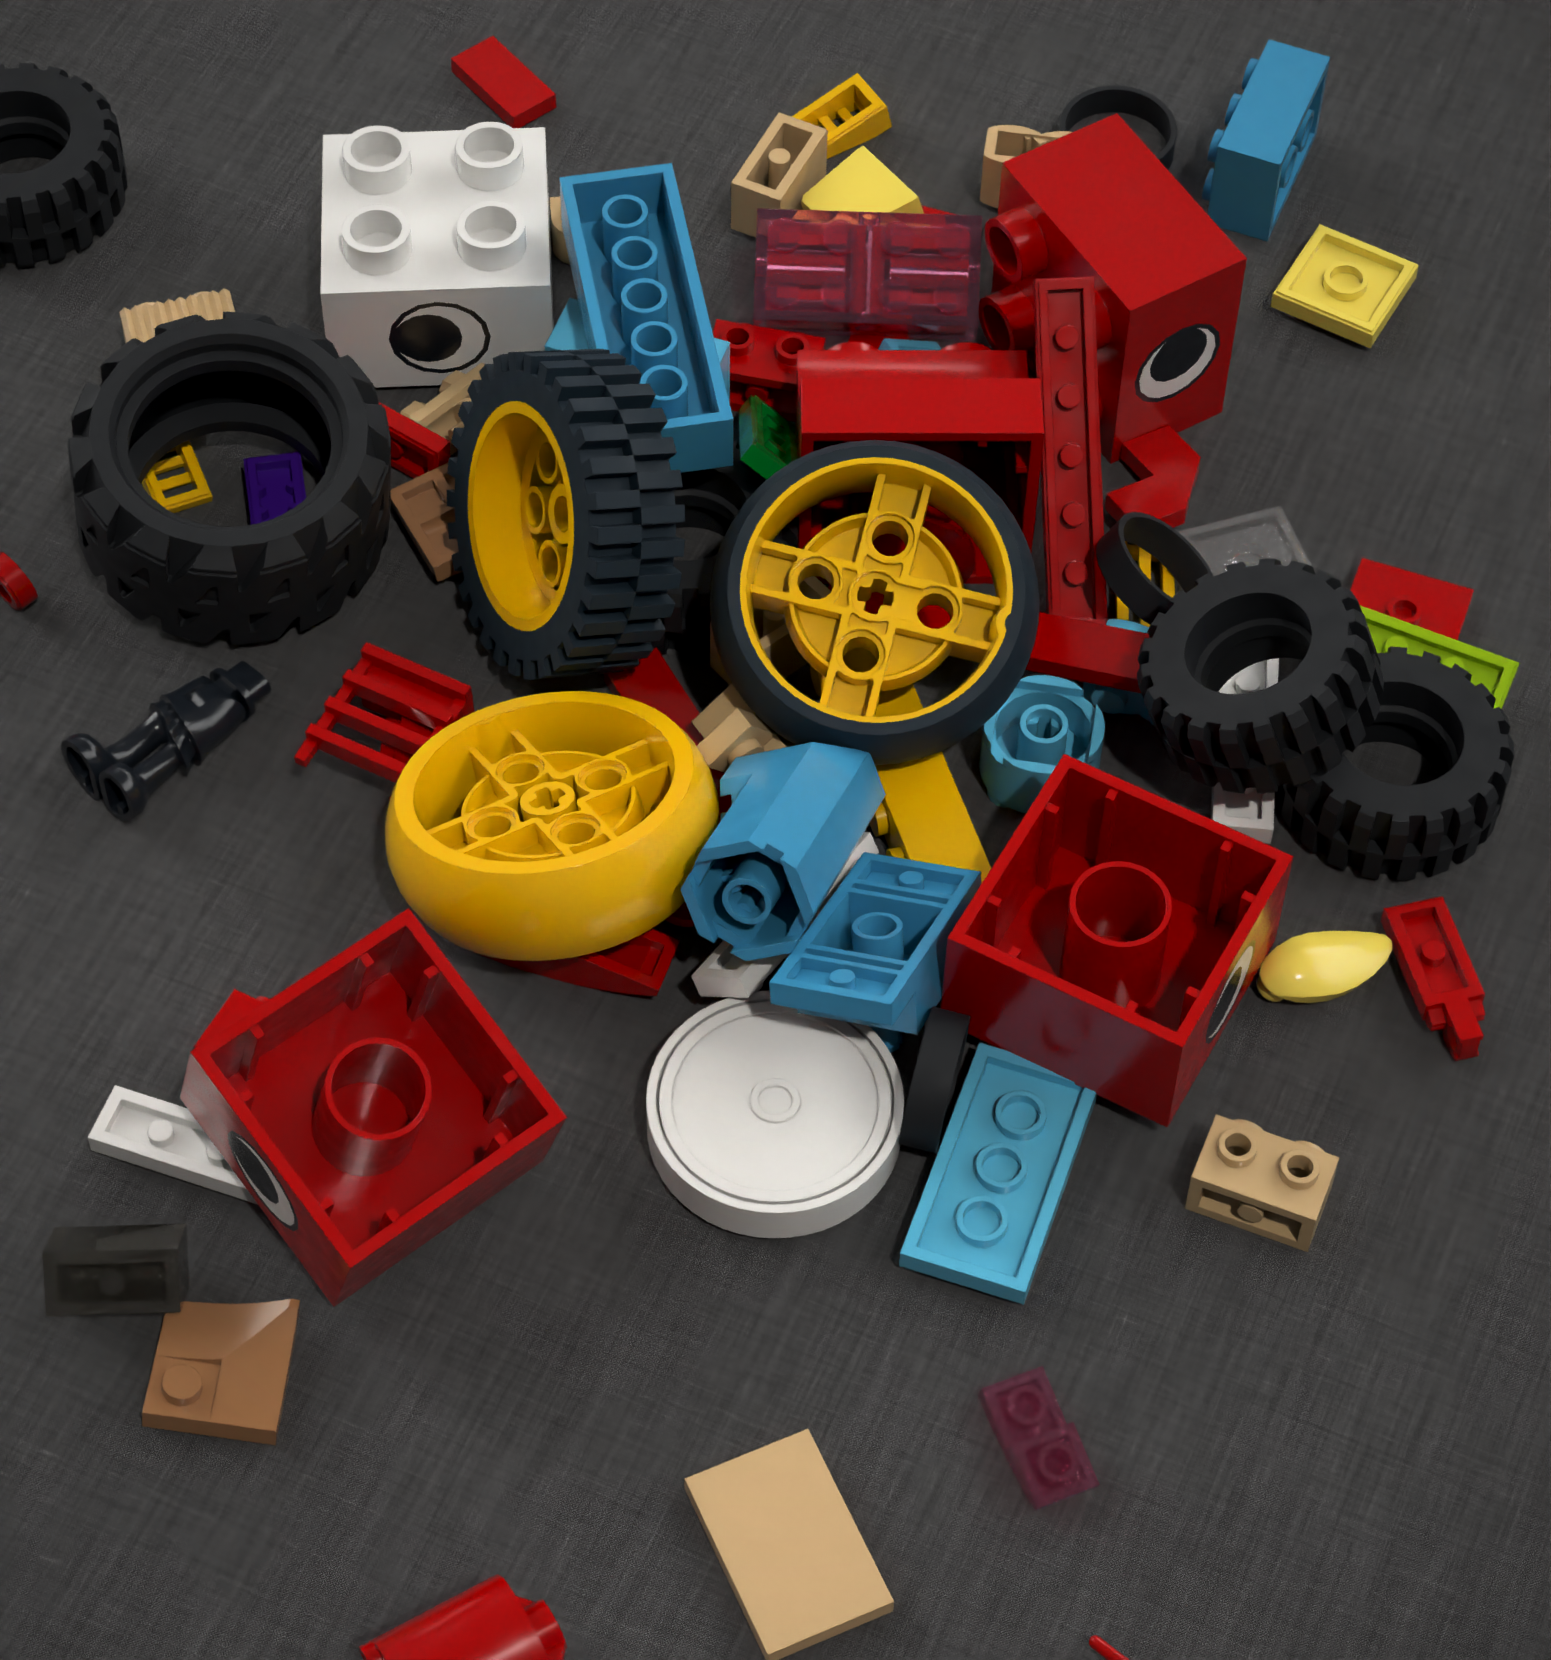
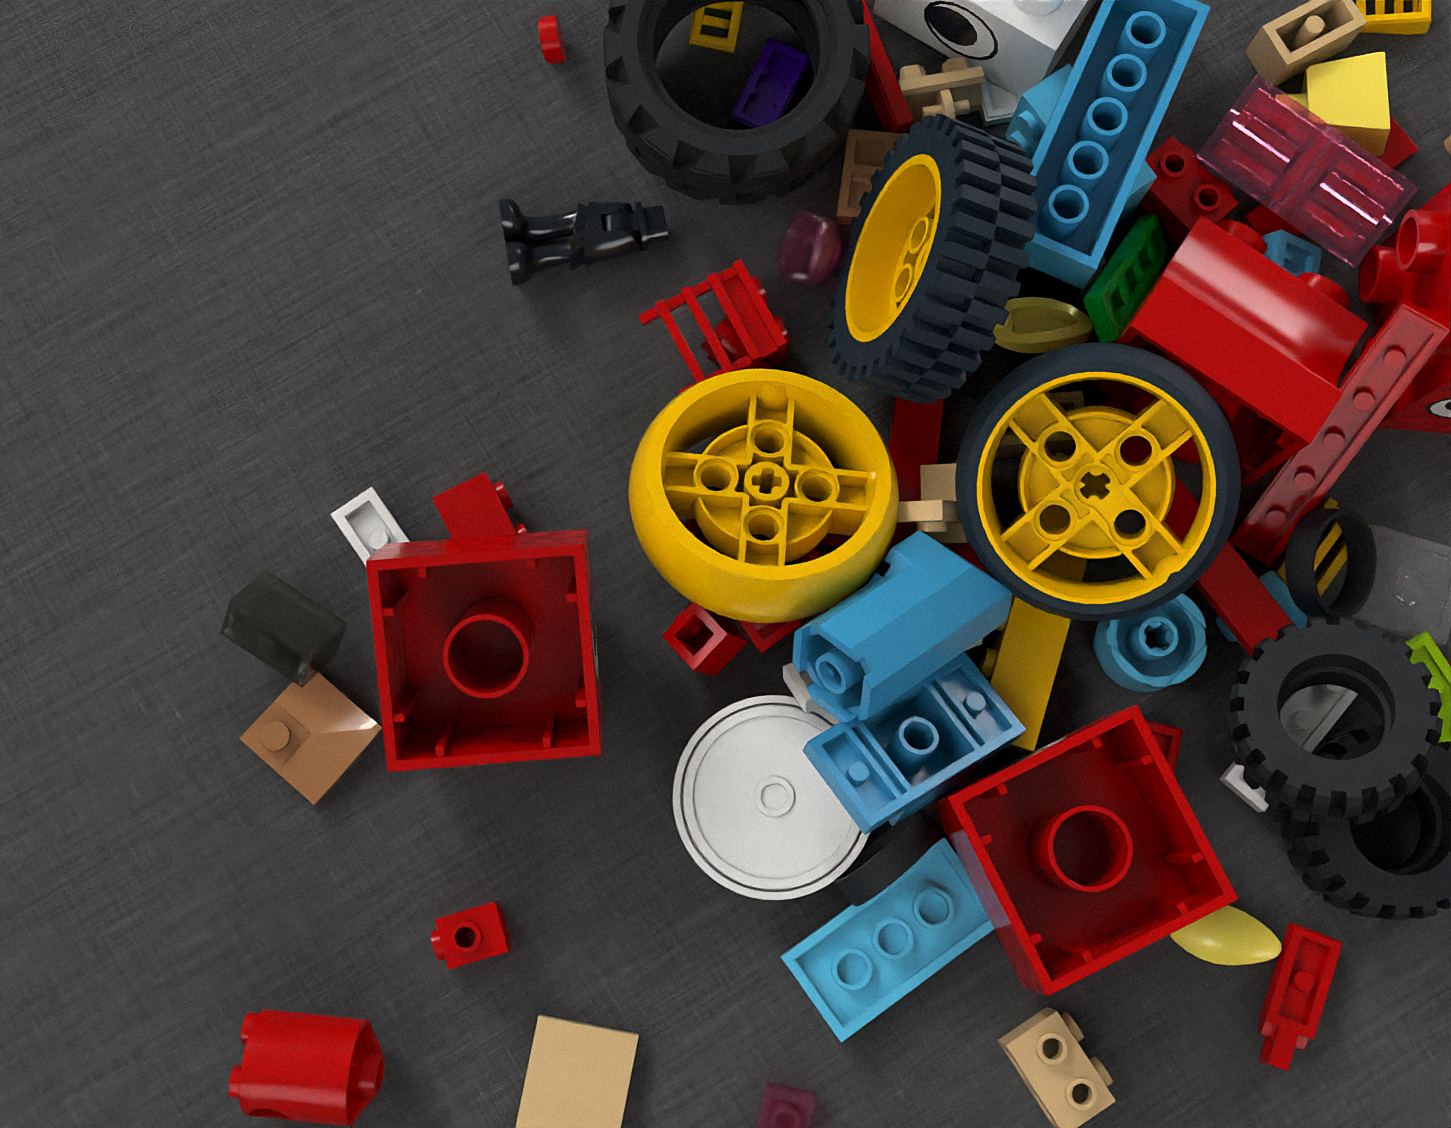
camera: 30 degrees right, 25 degrees up
(427, 610) = (810, 248): none -> clear pink hair
(552, 1441) = (471, 935): none -> red brick
(589, 1006) = (704, 639): none -> red brick
(709, 517) = (1042, 325): none -> light yellow arm
(1166, 473) = (1409, 468): red tile -> none

